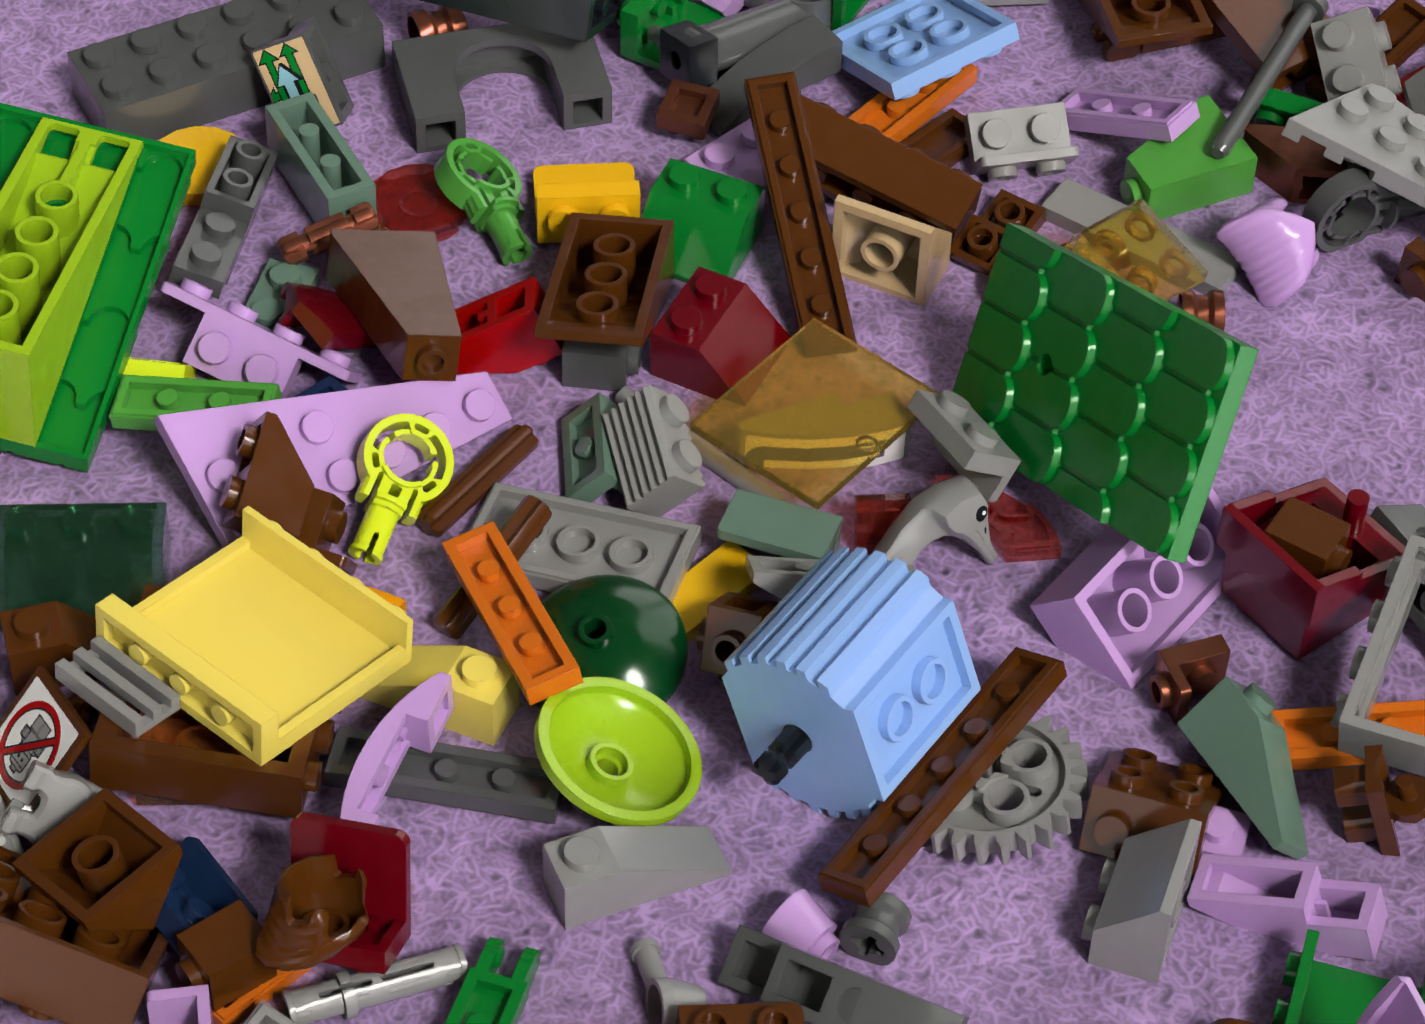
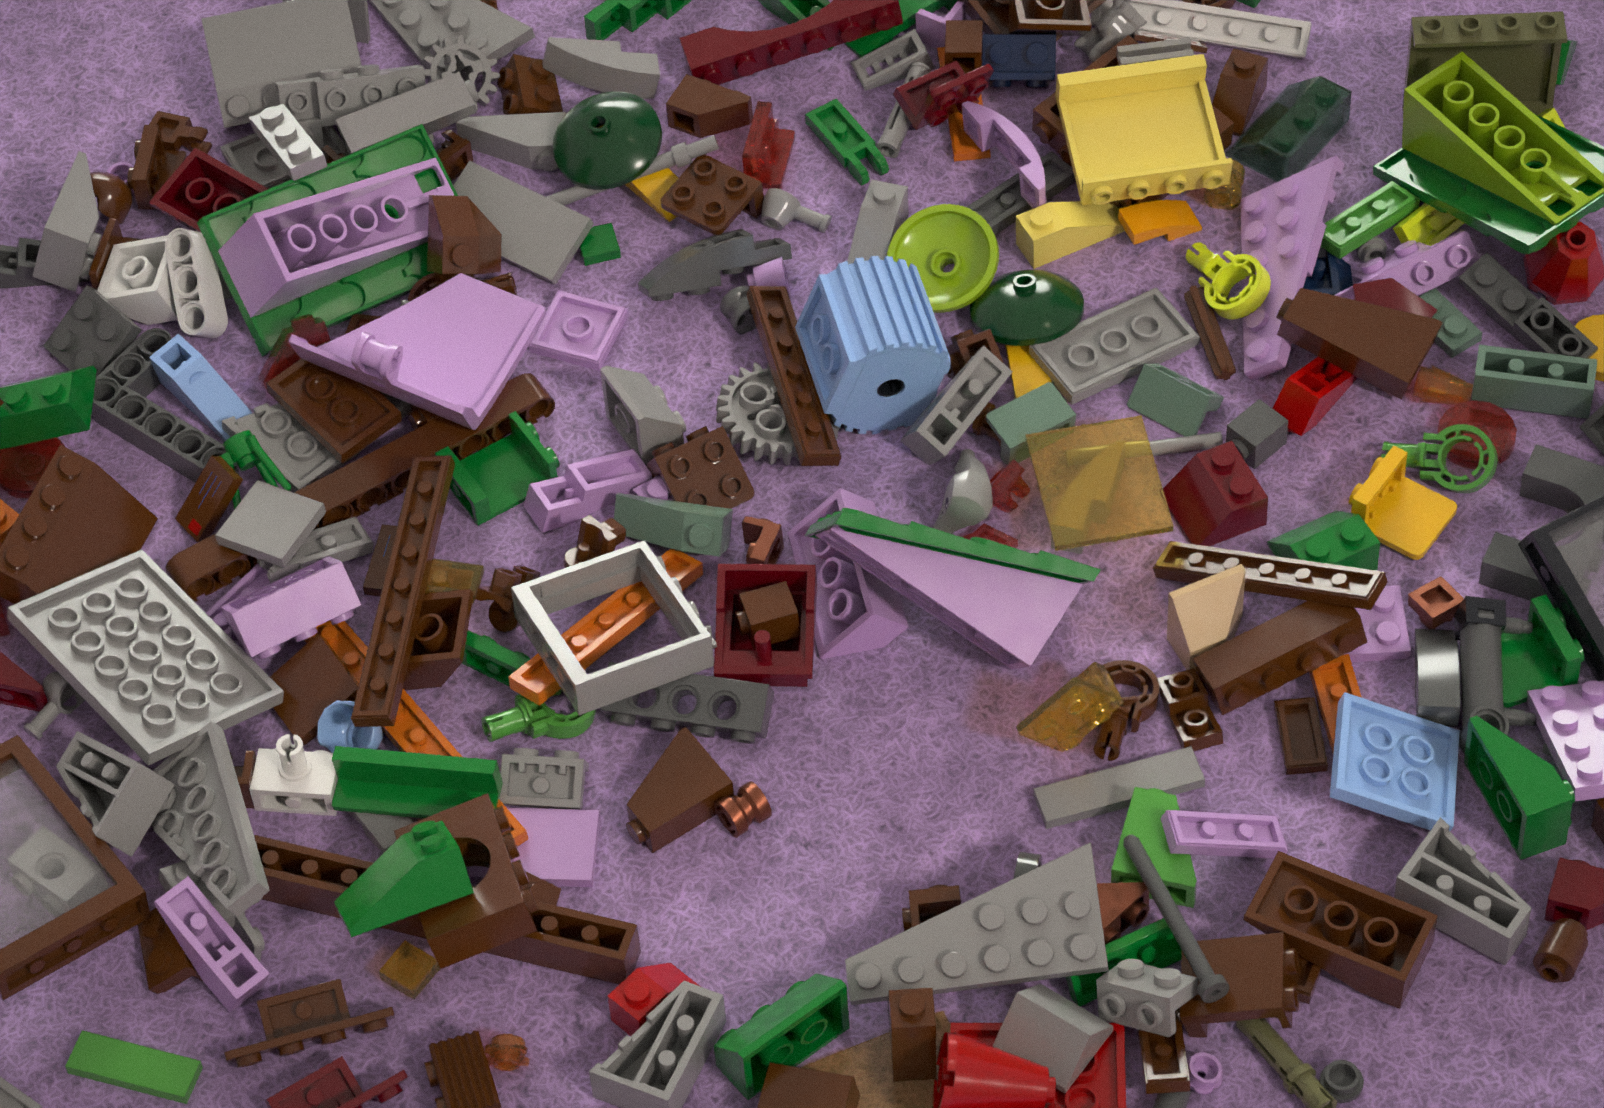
camera: 135 degrees right, 5 degrees up
(268, 478) = (1256, 198): reddish brown slope -> none
(312, 914) = (934, 58): reddish brown hair -> none
(317, 236) = (1466, 353): copper axle -> none
(326, 525) = (1215, 228): reddish brown bracket -> none
(512, 613) = (1065, 247): orange plate -> none
(518, 533) = (1126, 287): reddish brown axle -> none
(608, 280) = (1285, 438): reddish brown slope -> none
(653, 451) = (1140, 395): light grey brick -> none
(966, 441) = (1010, 524): light grey bracket -> none
(1018, 140) = (1252, 767): light grey bracket -> none
(1206, 307) = (1017, 757): copper wheel -> none
(1272, 249) = (1032, 823): lavender hair -> none

